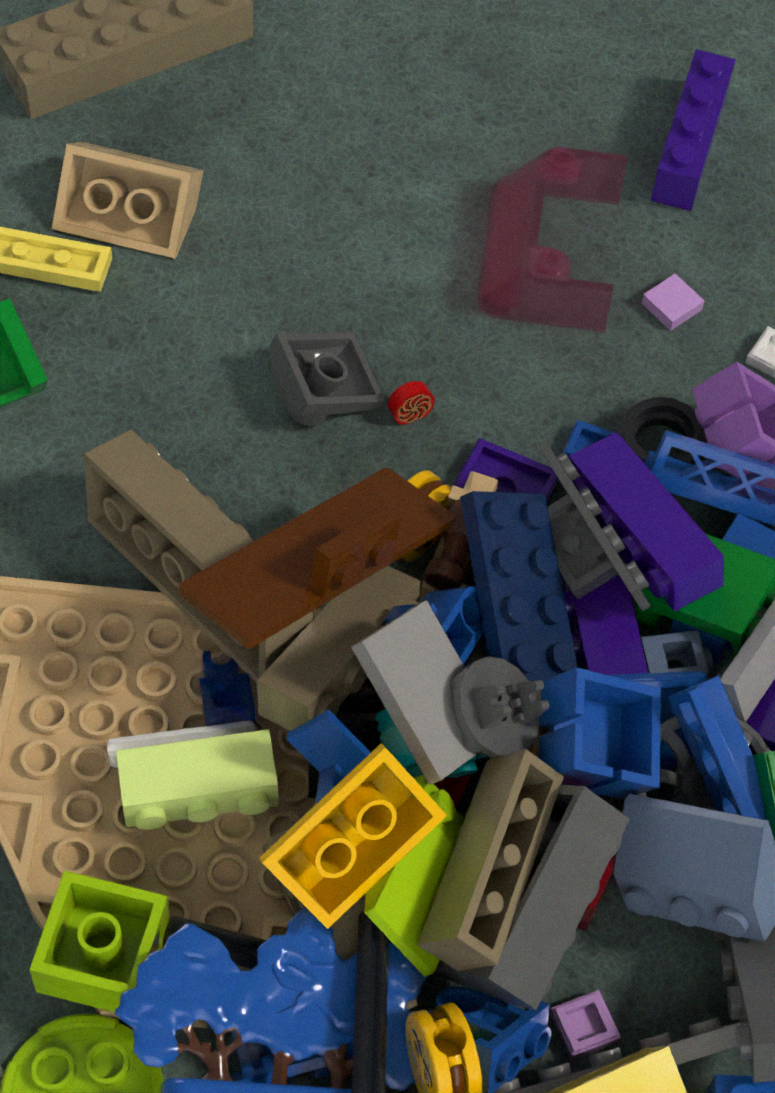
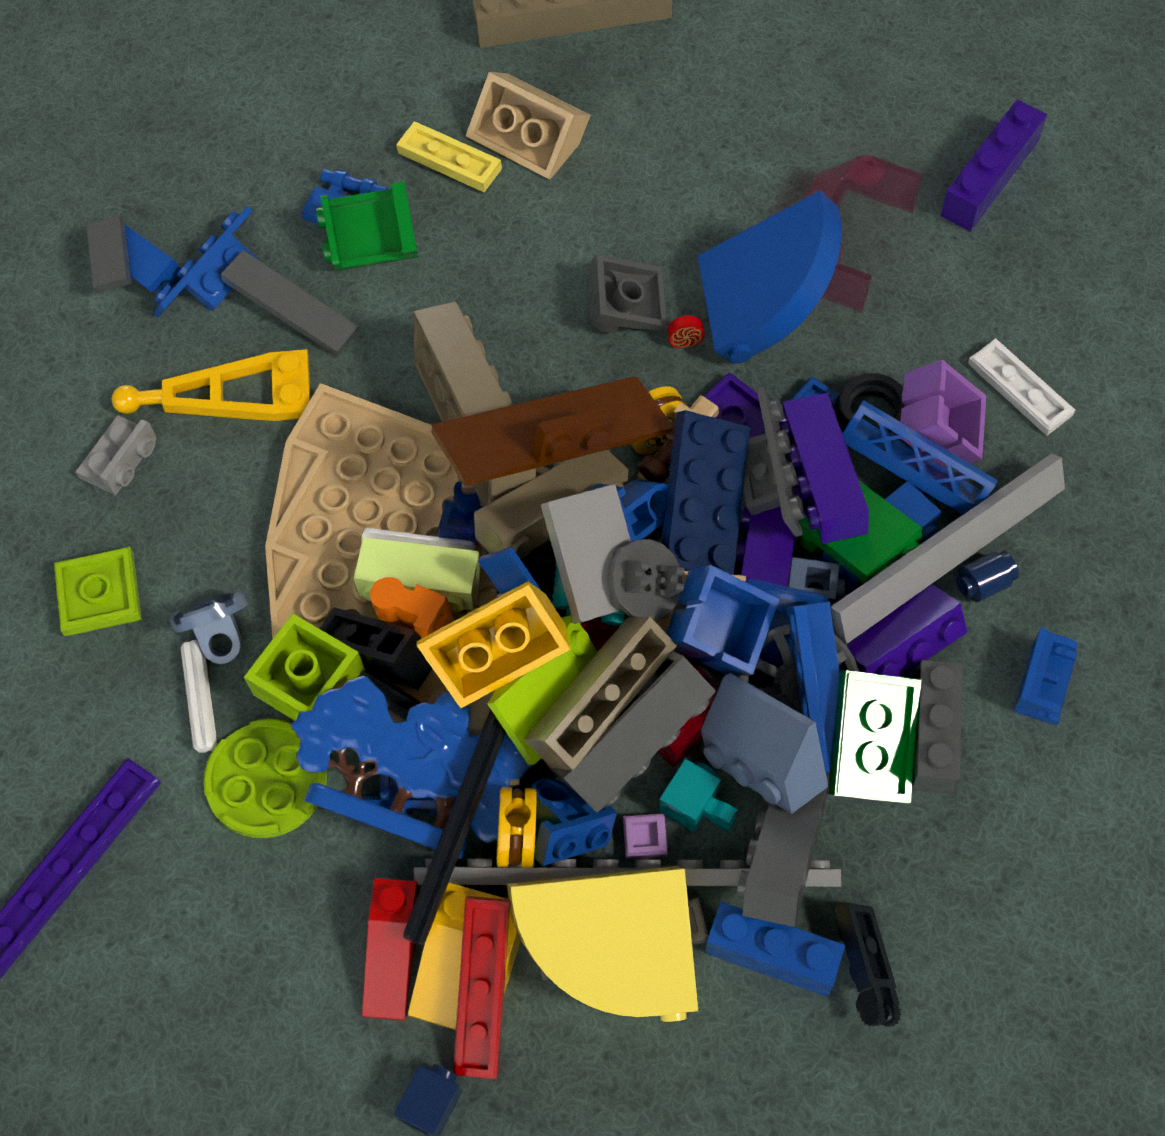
camera: 25 degrees right, 5 degrees up
(199, 882) = (383, 646): none -> black slope
(215, 831) = (415, 609): none -> orange legs
(495, 313) = (770, 276): none -> blue brick
(627, 959) = (693, 796): none -> teal brick
(672, 302) = (925, 301): lavender tile -> none

